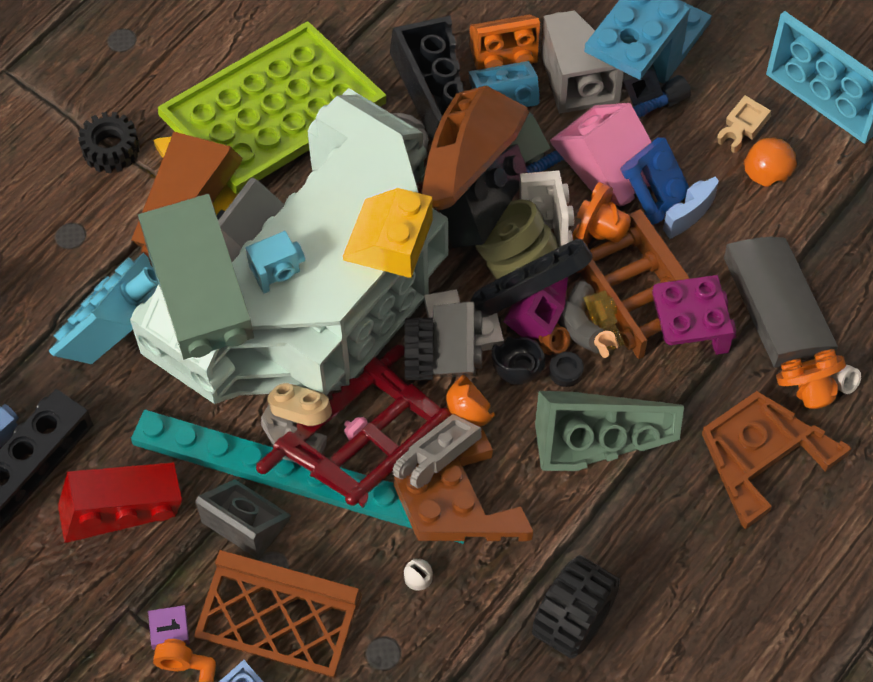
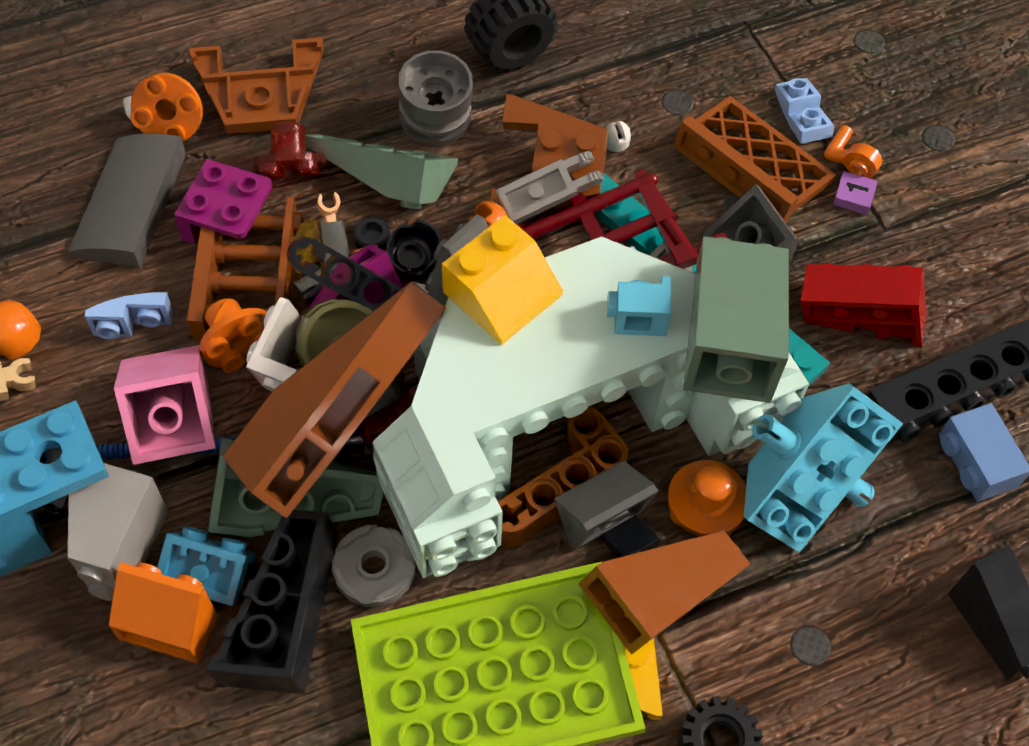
camera: 155 degrees left, 0 degrees up
(599, 480) = (435, 98): none -> flat silver wheel
(662, 175) = (136, 348): blue plate -> none
(673, 375) = (289, 153): none -> clear red plate

